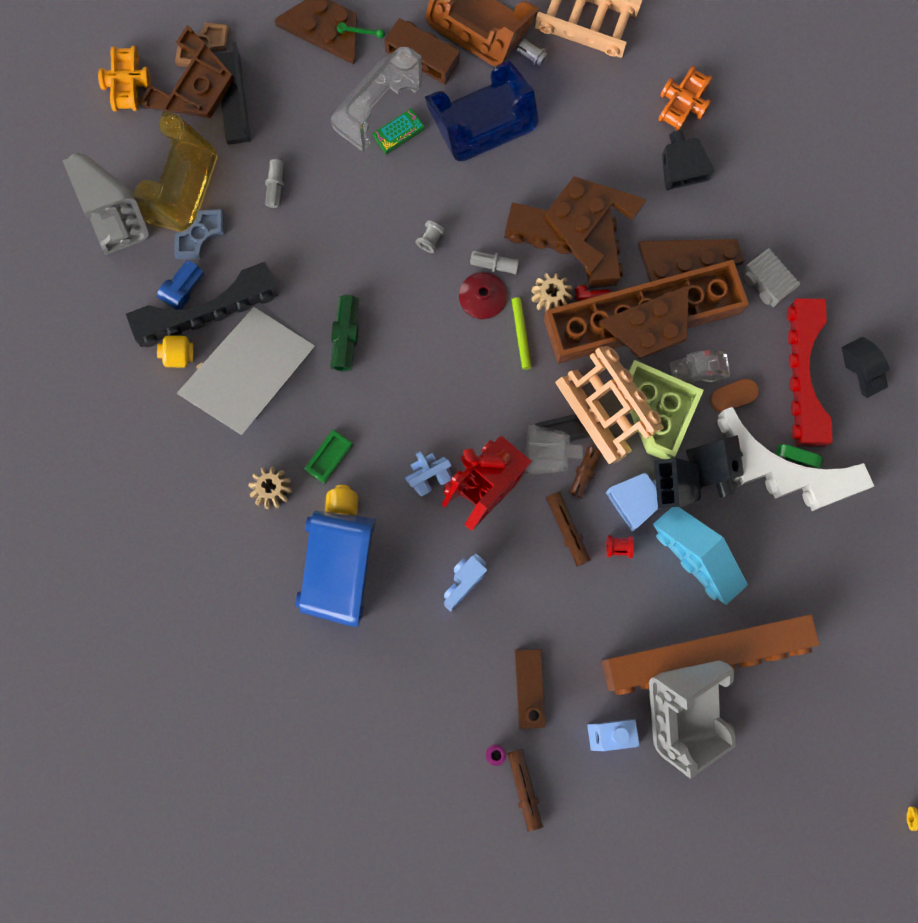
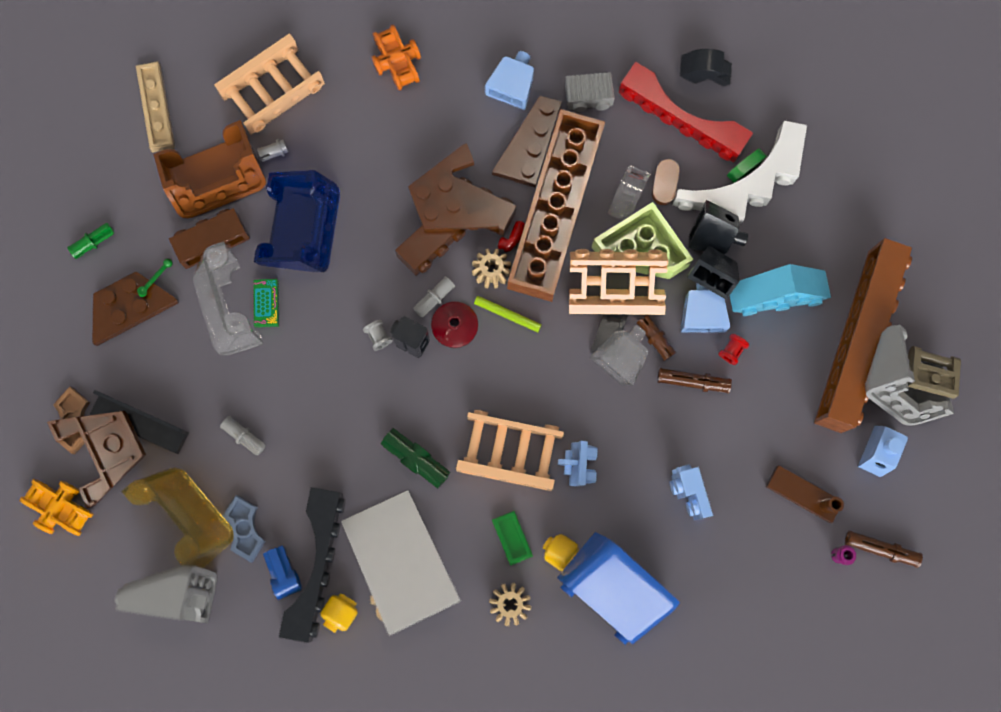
camera: 55 degrees left, 0 degrees up
(387, 425) = (494, 468): none -> light nougat fence
(444, 261) = (410, 336): none -> black brick
(486, 478) = (620, 419): red torso -> none
(651, 324) = (575, 206): reddish brown wing -> none
(685, 162) = (449, 93): black torso -> none
(710, 740) = (932, 378): none -> dark tan plate
(733, 207) = (511, 81): none -> light blue torso

